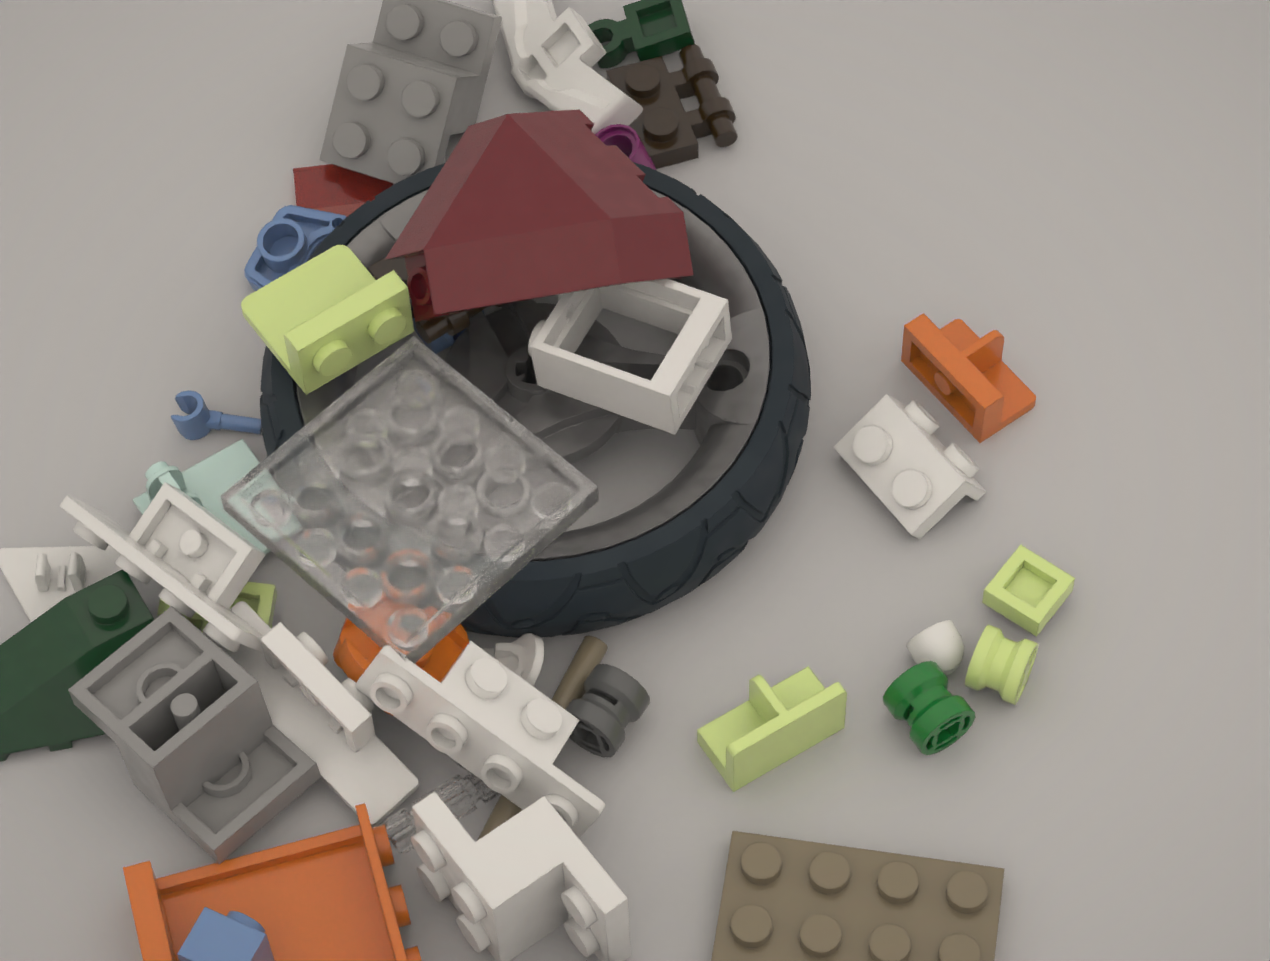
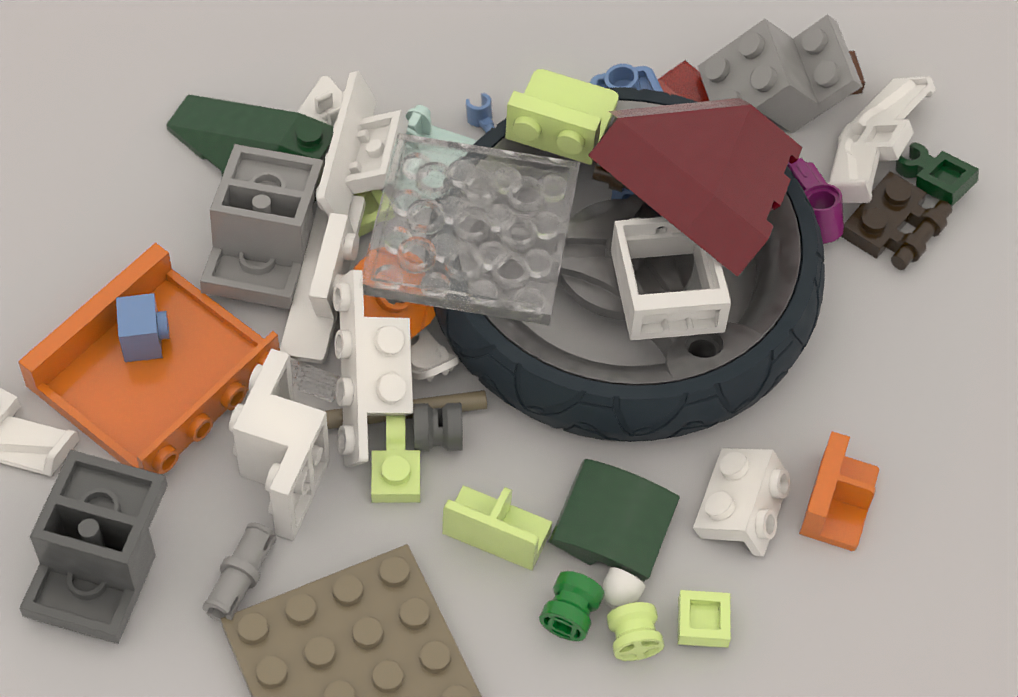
camera: 50 degrees right, 0 degrees up
(627, 785) = (395, 470): none -> yellowish green plate
(846, 603) = (614, 519): none -> dark green slope

